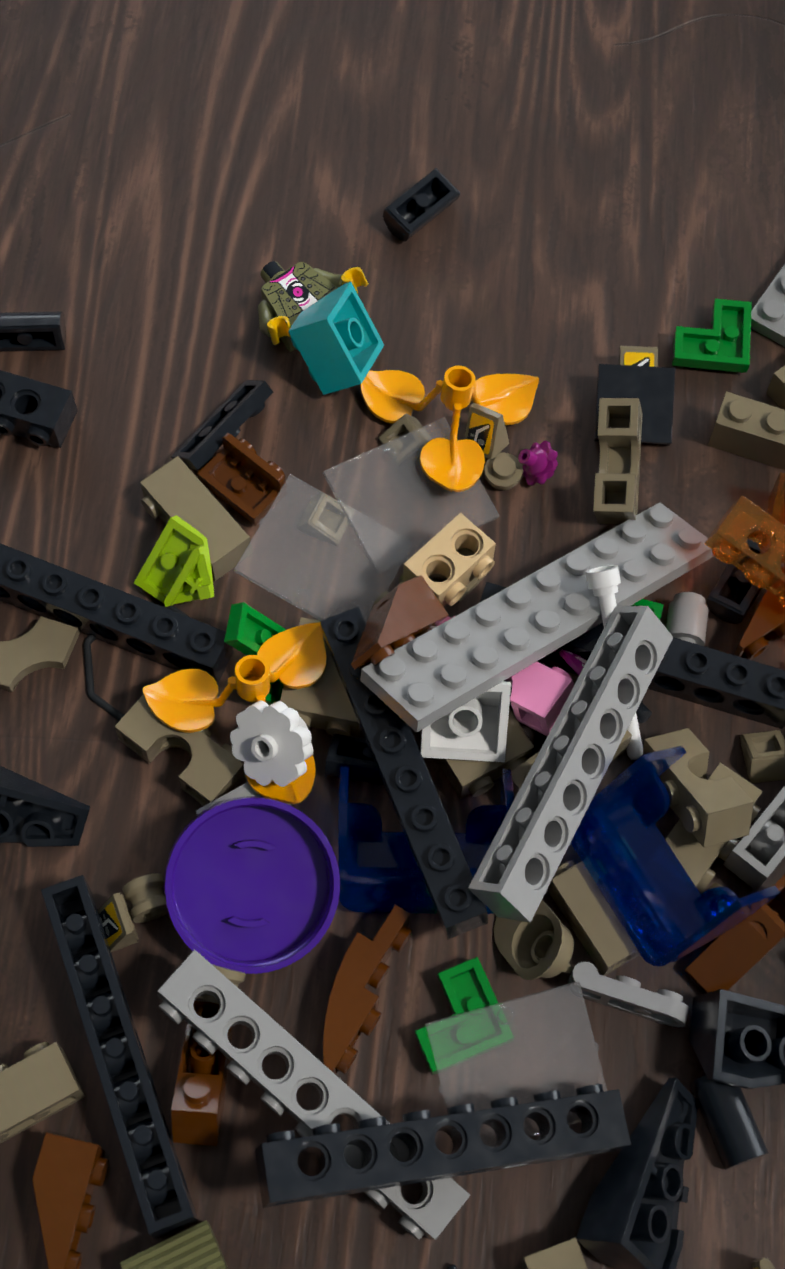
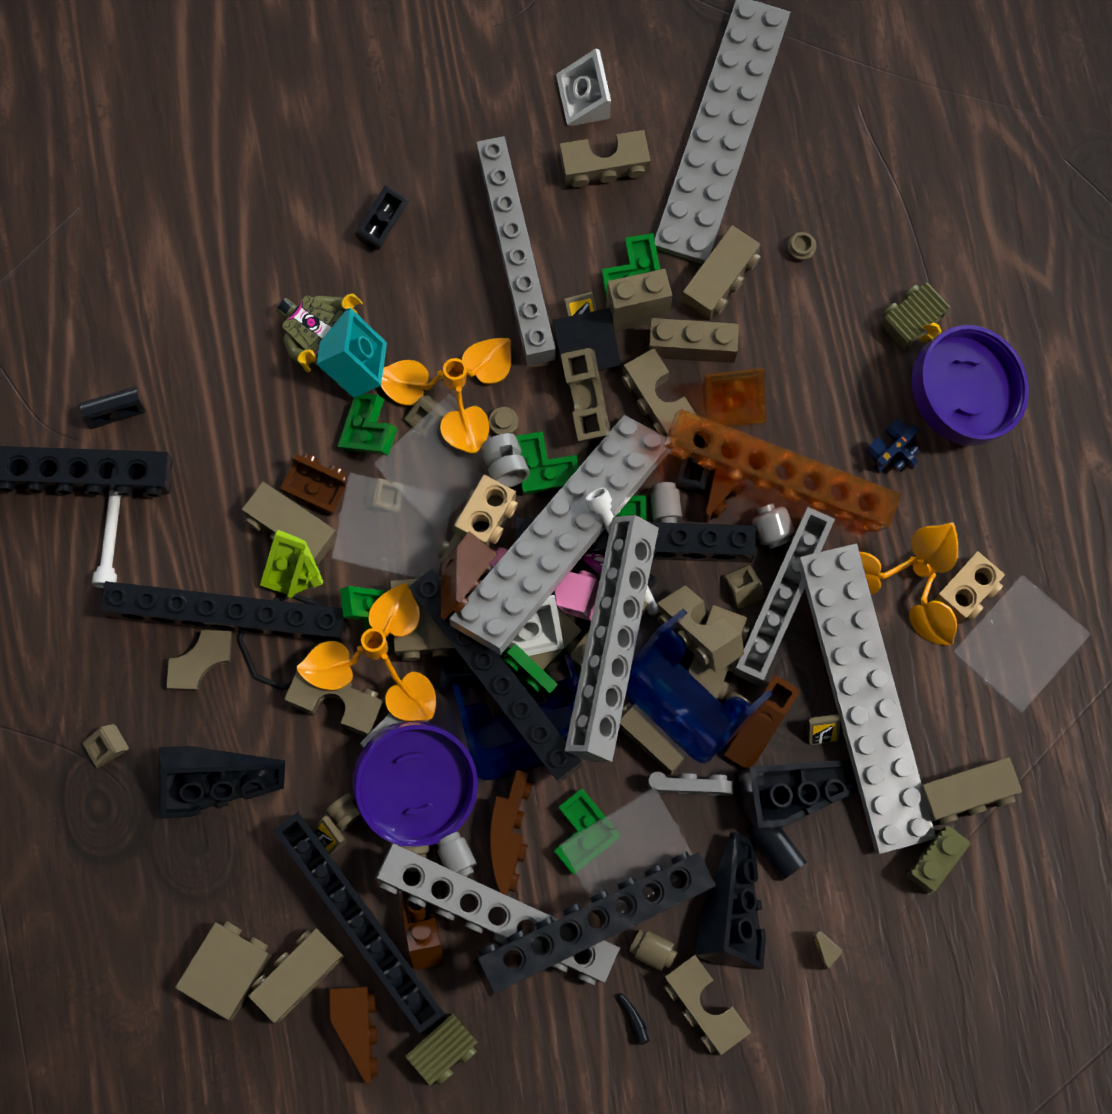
camera: 15 degrees left, 10 degrees up
(207, 439) = (286, 443): black plate -> none
(272, 743) = (401, 685): white plant -> none
(280, 996) = (456, 854): none -> light grey brick
(325, 431) = (361, 428): none -> green plate
(447, 771) = (528, 671): none -> green plate
(487, 430) = (483, 395): slope -> none
(492, 507) = (504, 459): none -> light grey wheel
(517, 1214) = (653, 950): none -> dark tan brick
(528, 538) = (544, 472): none -> green plate
(535, 947) = (623, 773): dark tan piece -> none
(538, 463) = (528, 409): magenta plant -> none
(574, 283) = (516, 251): none -> light grey brick
(684, 210) = (582, 166): none -> dark tan arch
(697, 464) = (643, 378): none -> dark tan arch
(708, 129) = (585, 90): none -> white slope
(715, 361) = (639, 299): none -> dark tan brick

